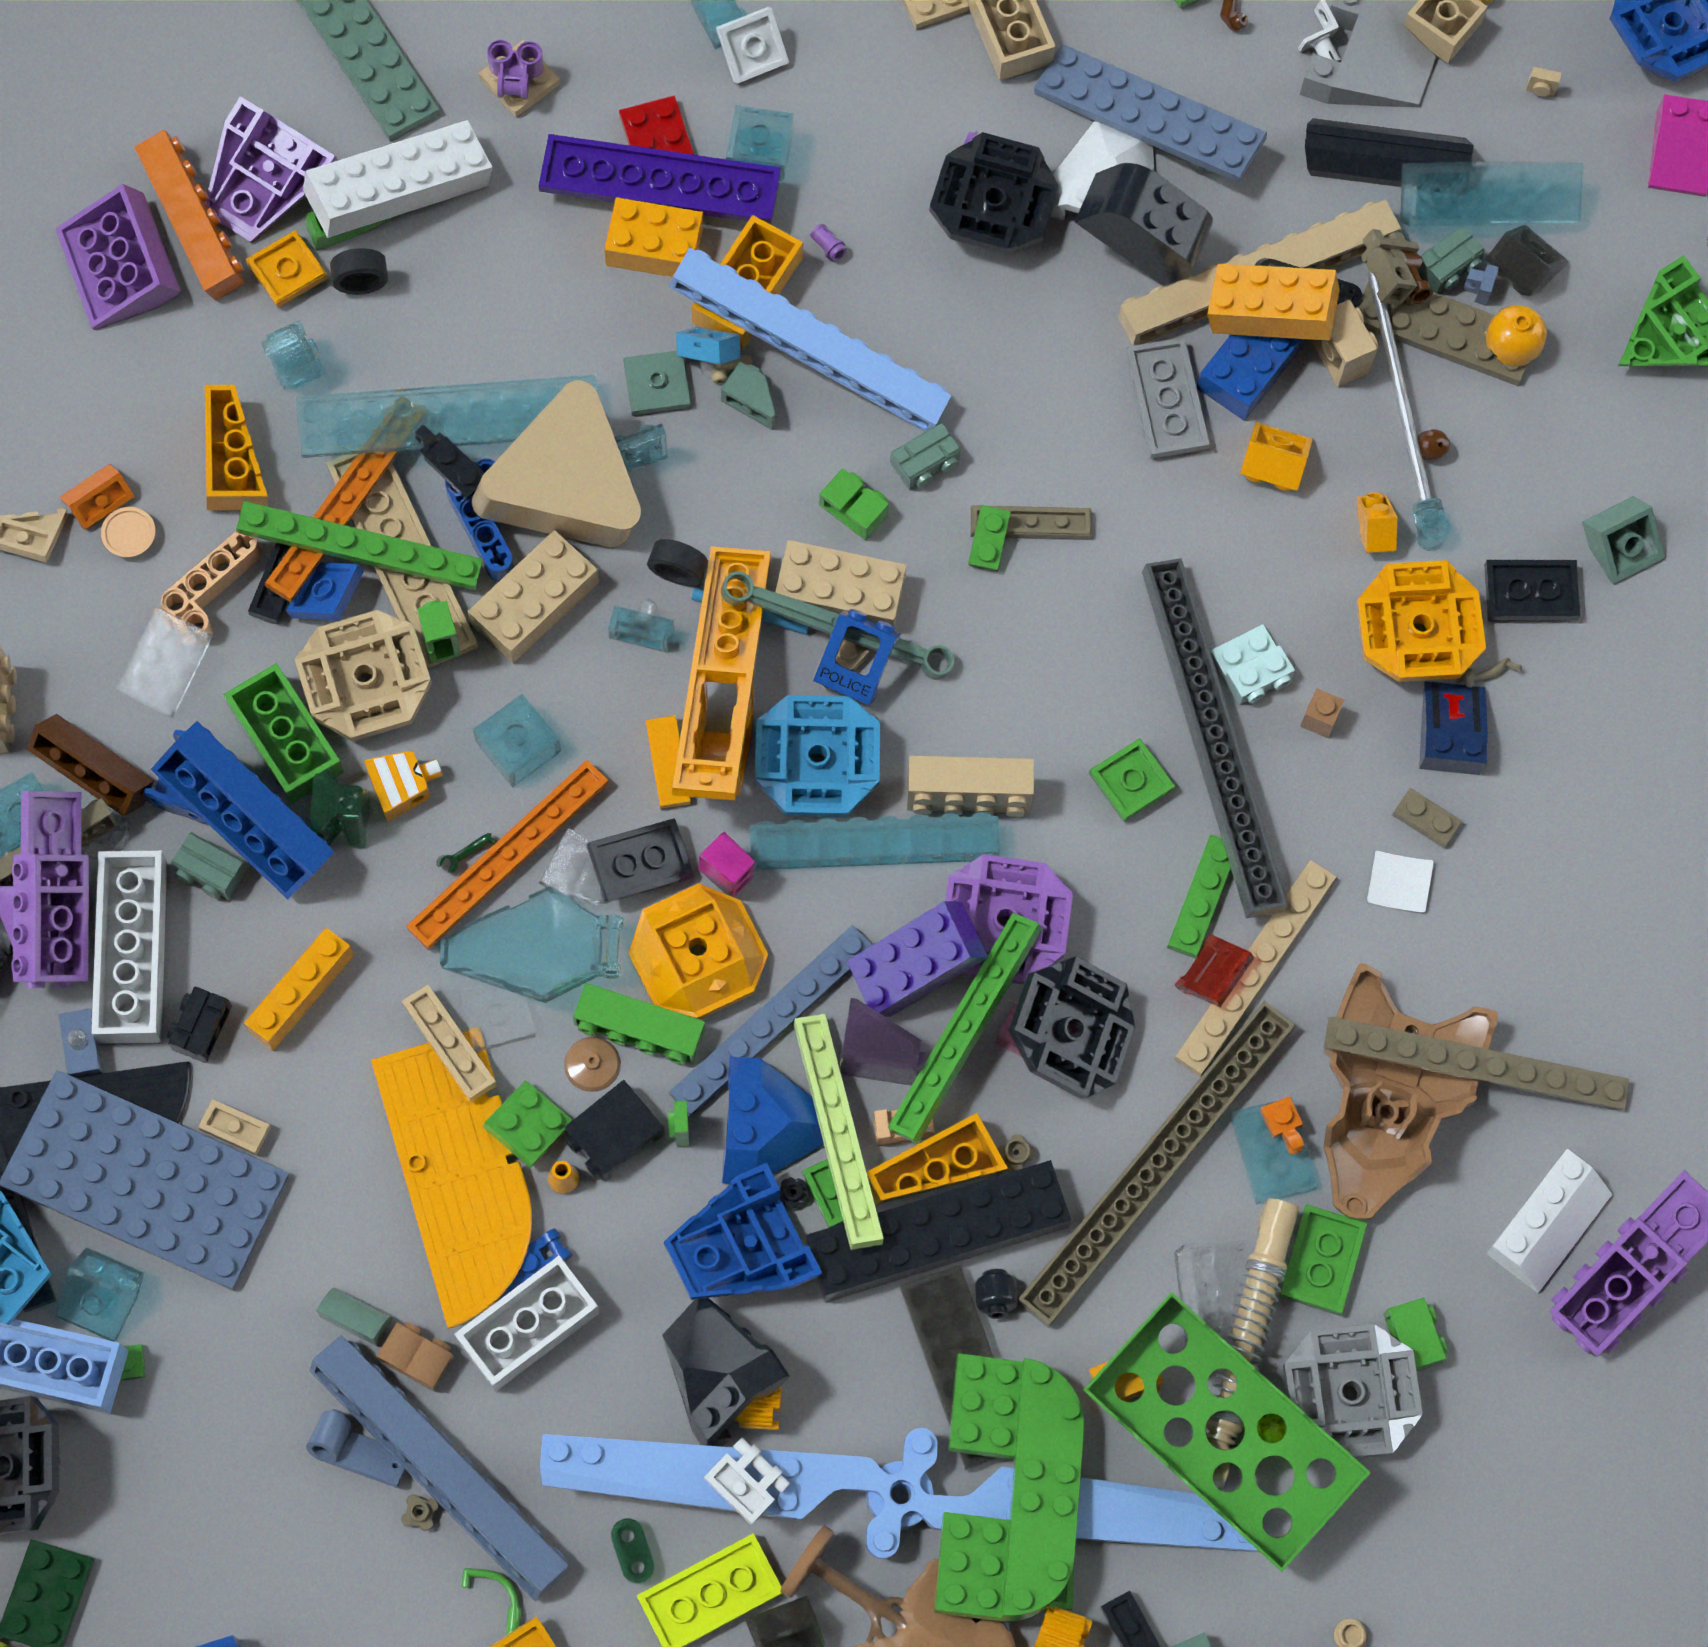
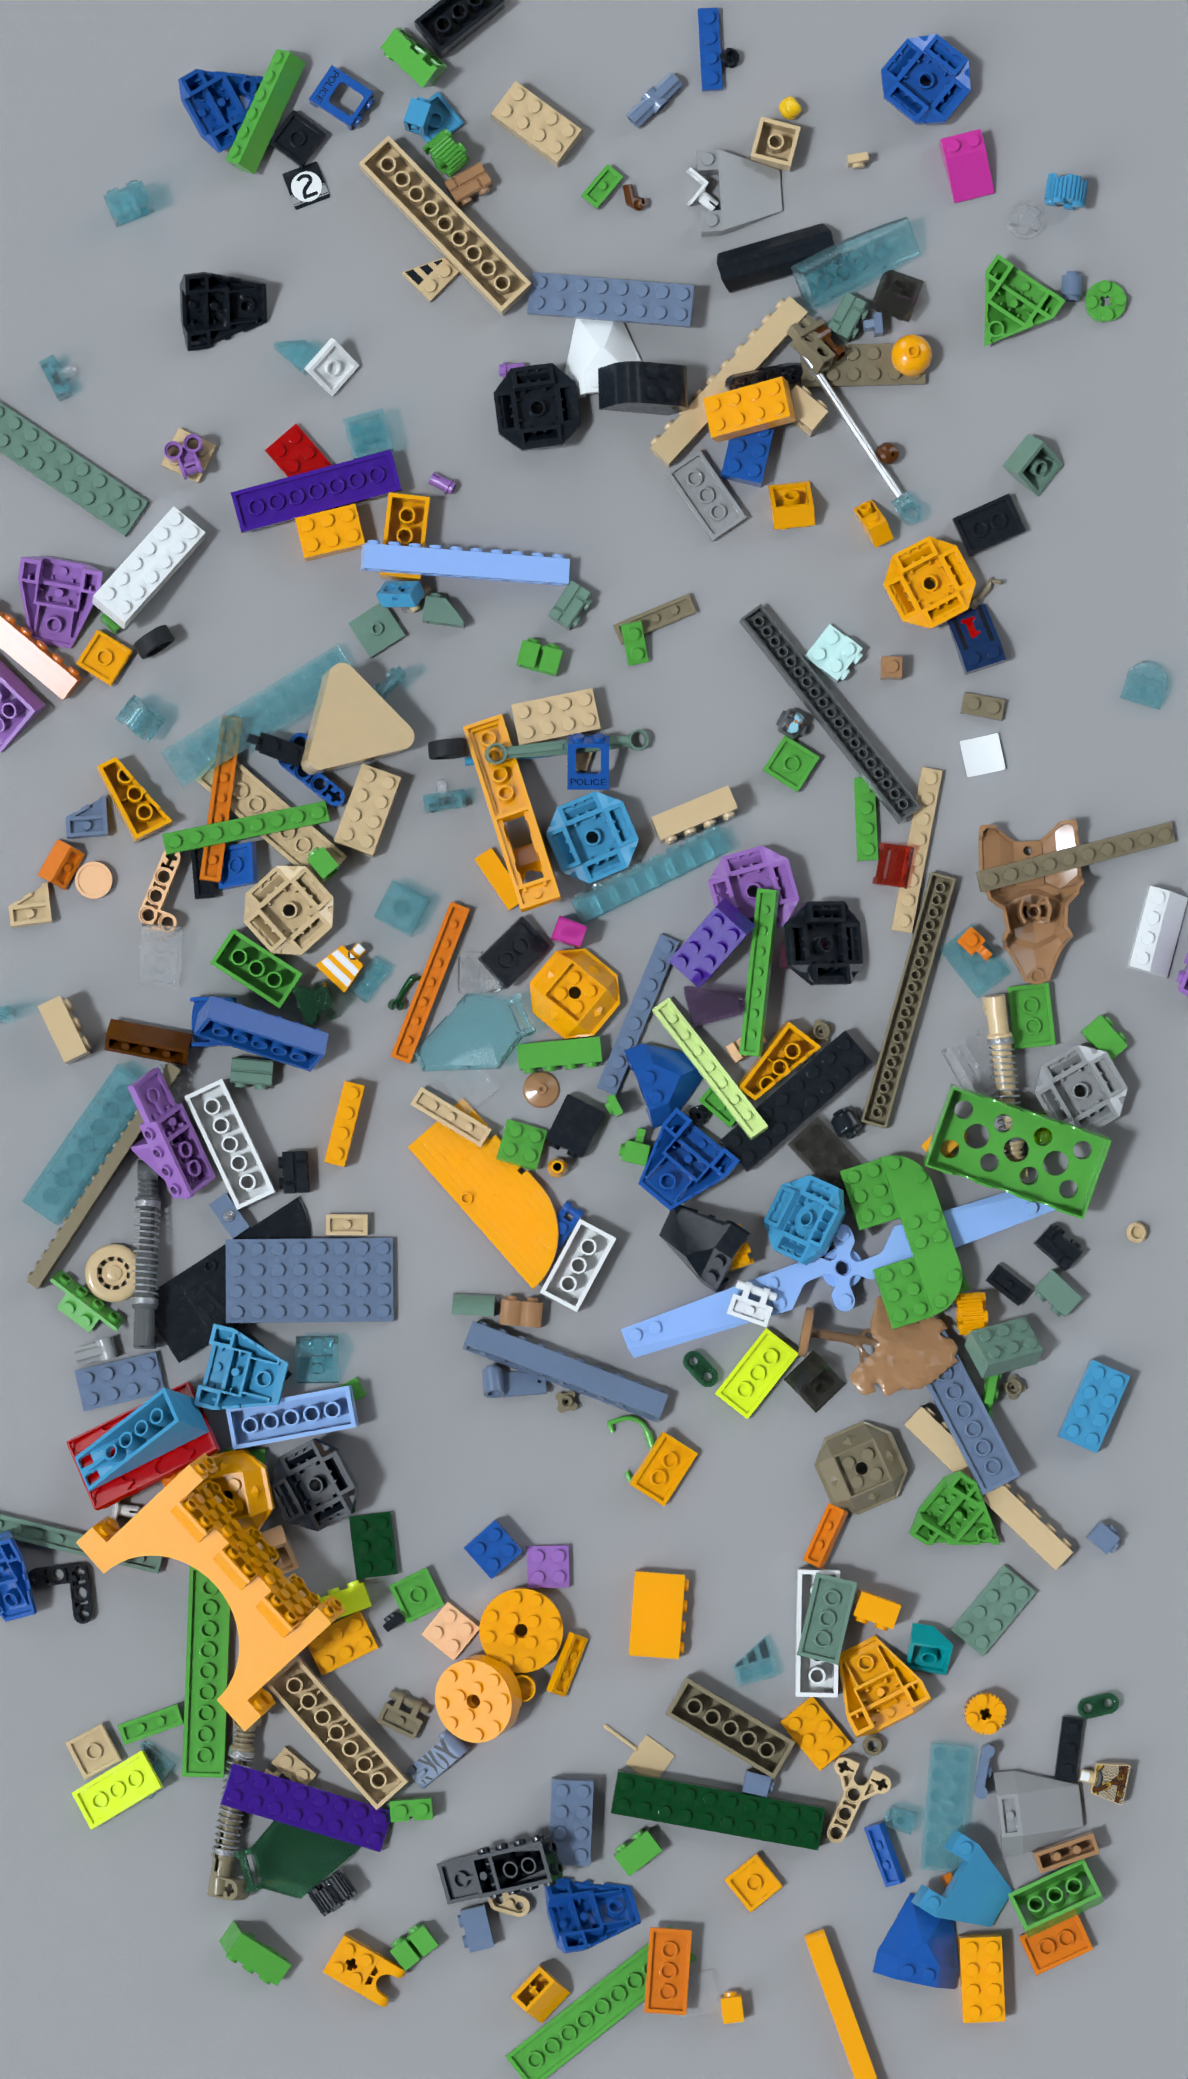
camera: 20 degrees left, 15 degrees up
(161, 457) = (89, 821): none -> sand blue wing
(431, 816) = (370, 979): none -> clear light blue slope
(682, 1201) = (636, 1151): none -> bright green brick
(879, 1398) = (805, 1218): none -> dark azure piece
(1155, 727) = (791, 723): none -> head
(1226, 1605) = (1058, 1247): none -> black brick
(1665, 883) = (1145, 684): none -> clear light blue slope

